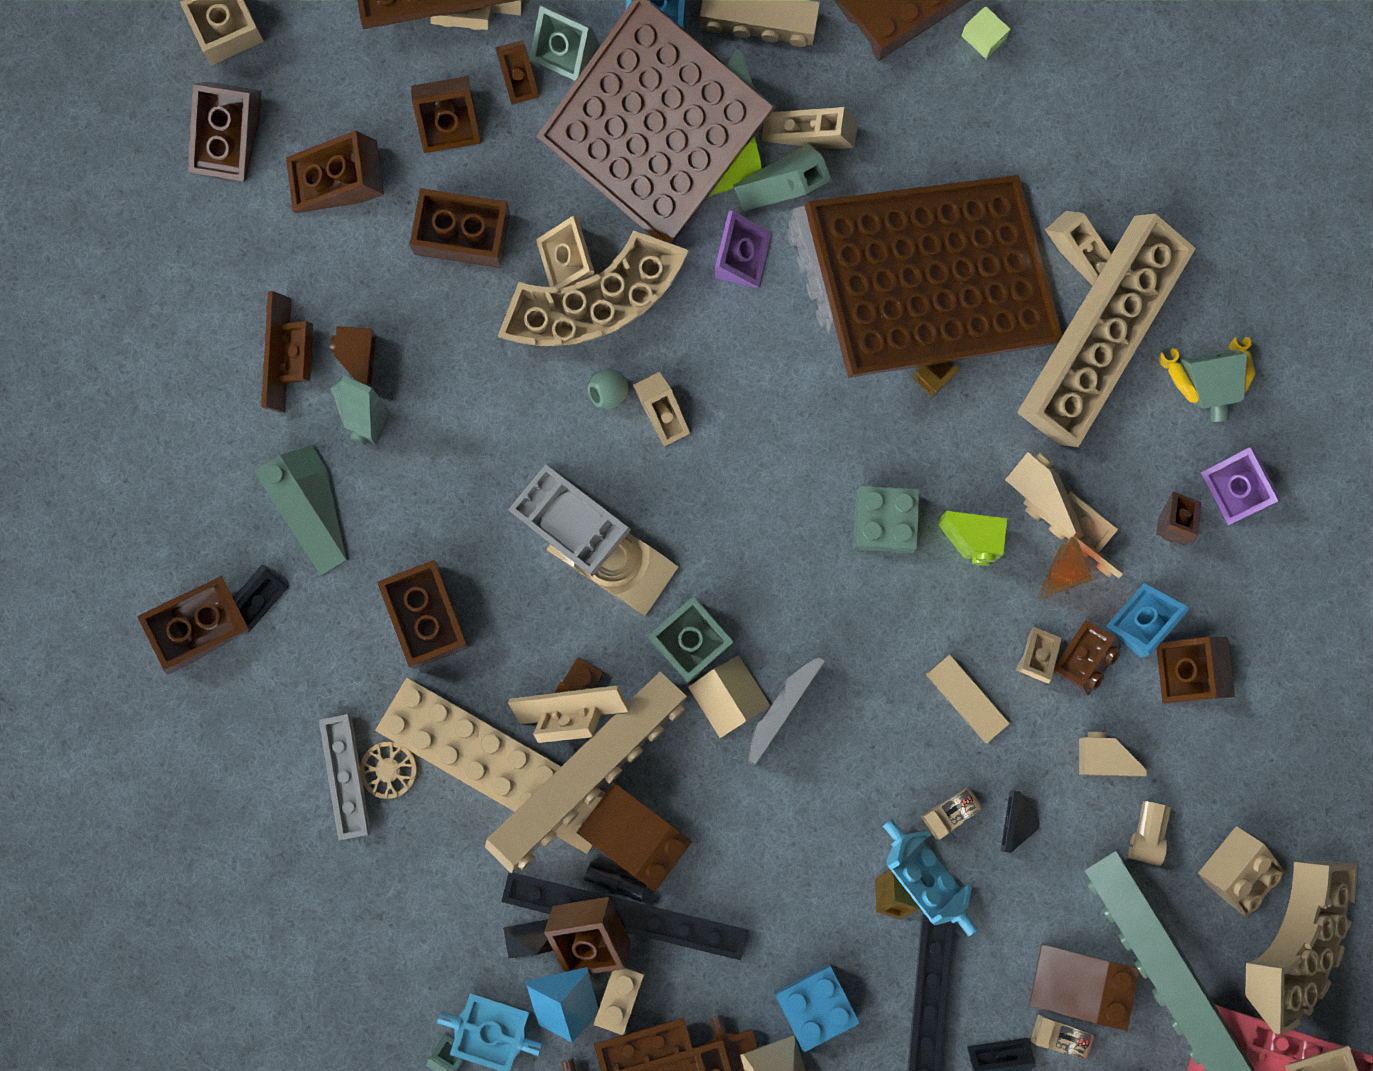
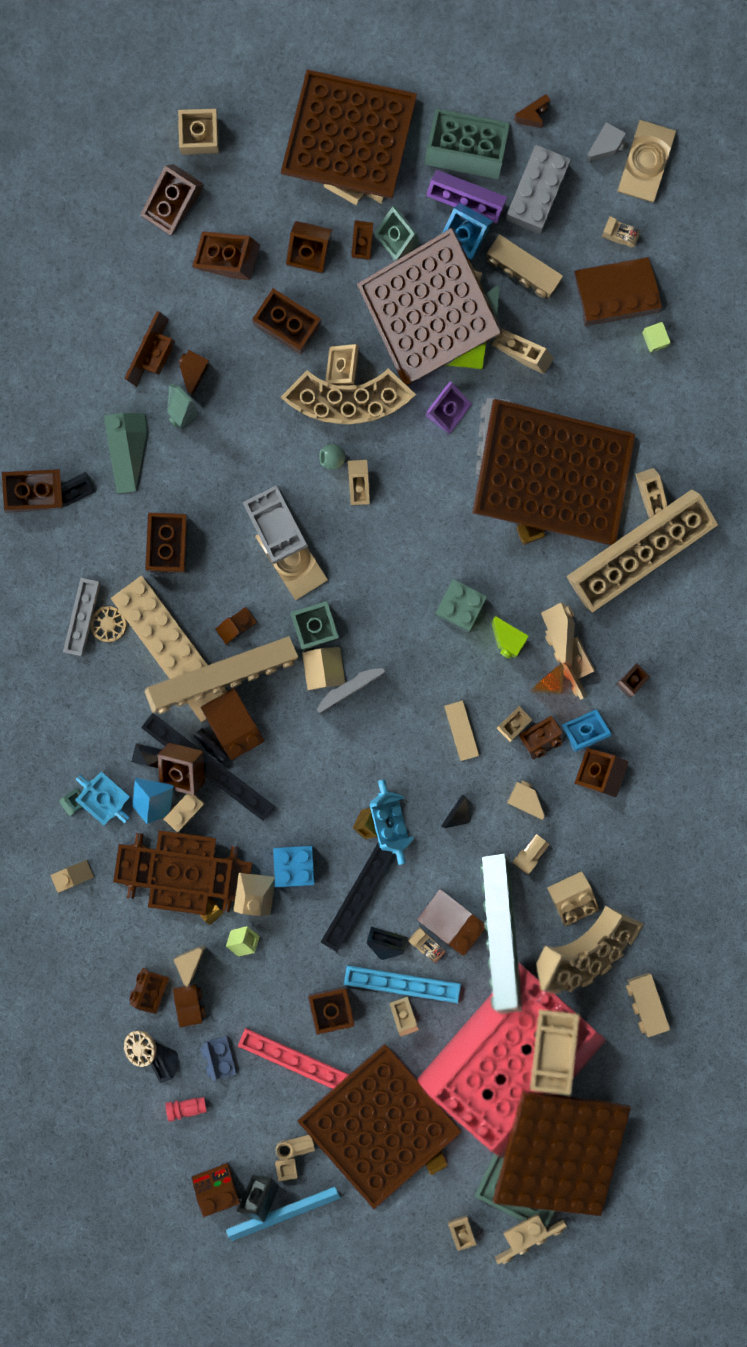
camera: 25 degrees right, 5 degrees up
(568, 713) = (225, 637): tan bracket -> none
(784, 179) = (493, 375): sand green slope -> none
(951, 813) = (422, 791): tan leg -> none
(1213, 378) = (693, 607): sand green torso -> none
(1240, 485) = (678, 677): medium lavender slope -> none

